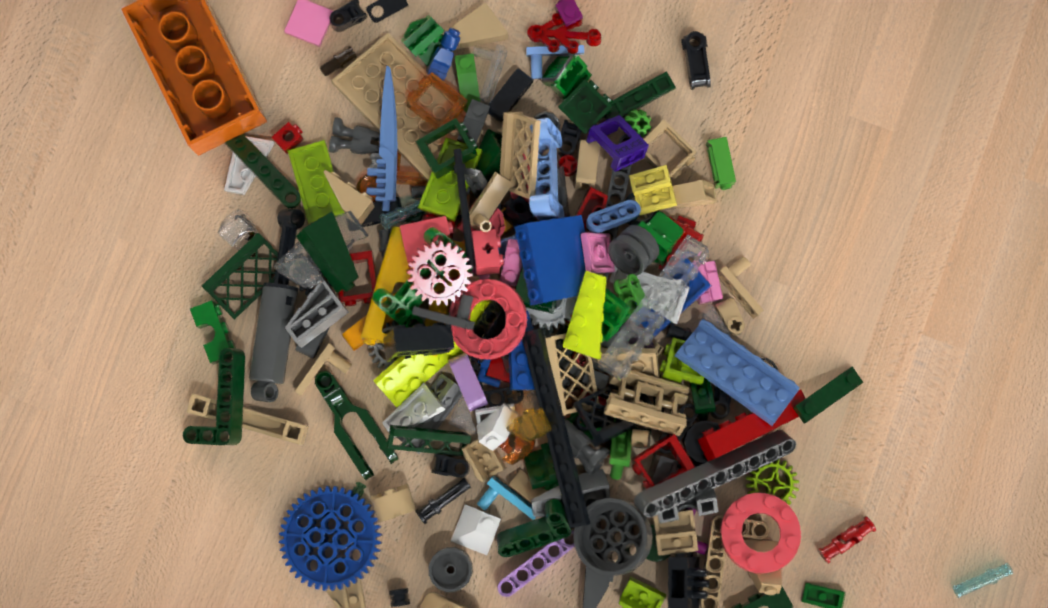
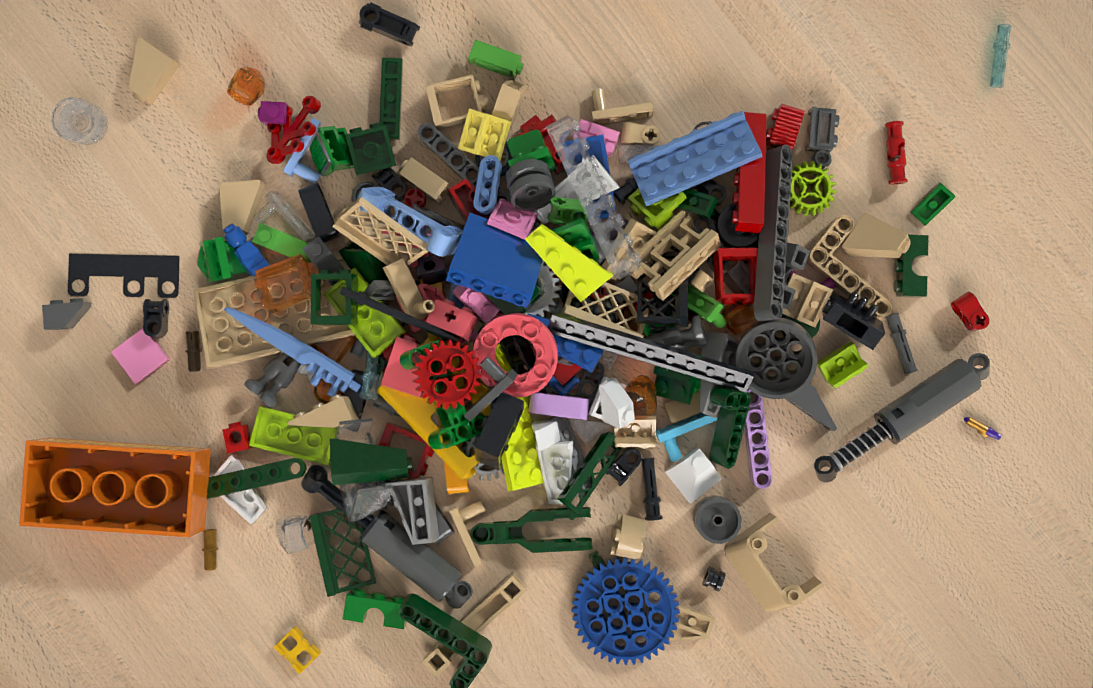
camera: 55 degrees left, 5 degrees up
(148, 289) = (302, 644): none -> yellow piece
(184, 169) = (209, 549): none -> pearl gold axle
(438, 384) = (545, 433): none -> white slope
(530, 425) = (635, 373): clear yellow slope -> none
(623, 153) = (436, 139): dark purple window -> none
(628, 486) = (738, 317): none -> clear orange helmet
(639, 116) = (412, 118): bright green piece -> none
(732, 533) = (844, 253): coral plate -> none
(809, 480) = (826, 158): none -> dark grey plate
(811, 433) = (785, 126): none -> red brick
(828, 395) = (761, 91): dark green plate -> none
(828, 465) = (822, 129): none -> dark grey window

